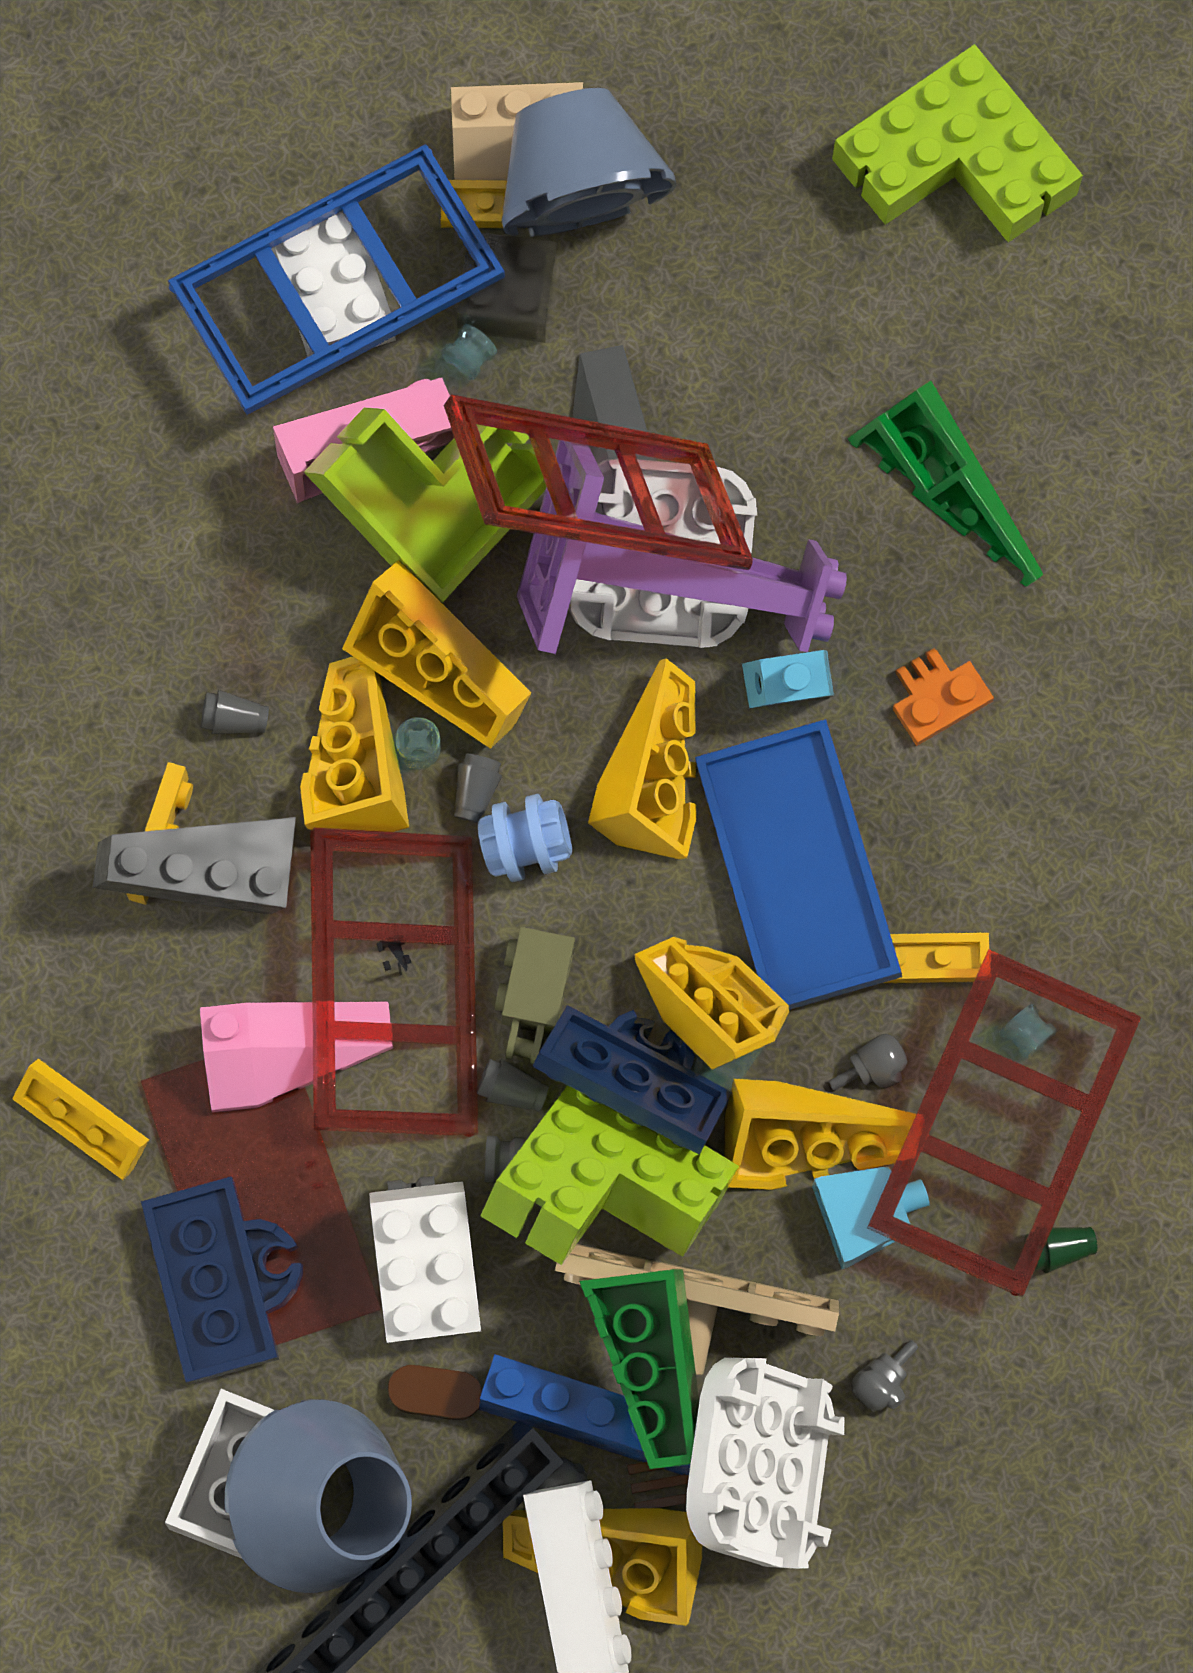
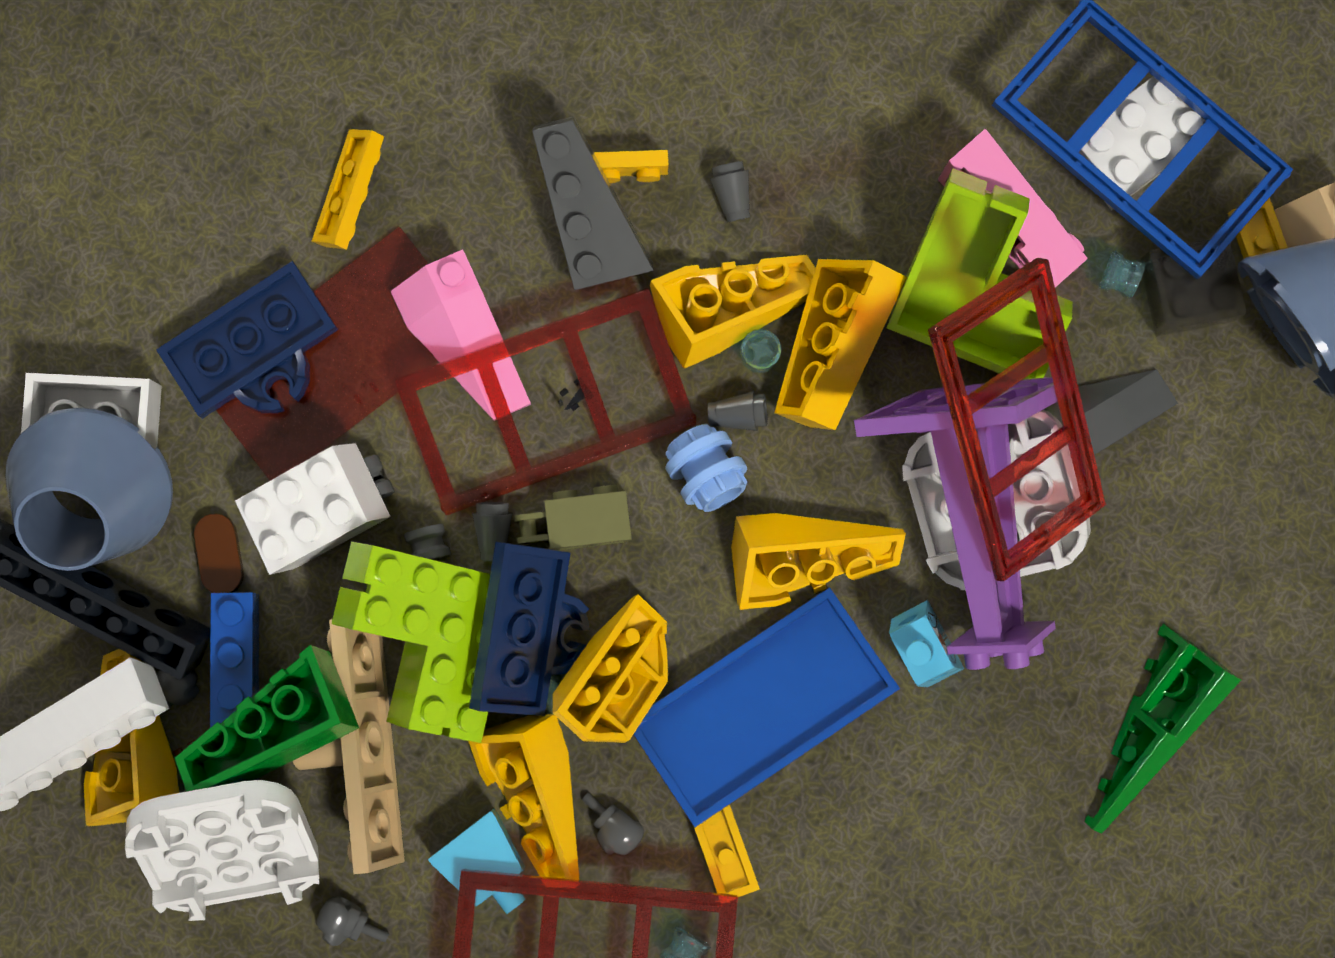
camera: 70 degrees right, 10 degrees up
(938, 696) = (958, 778): orange hinge -> none

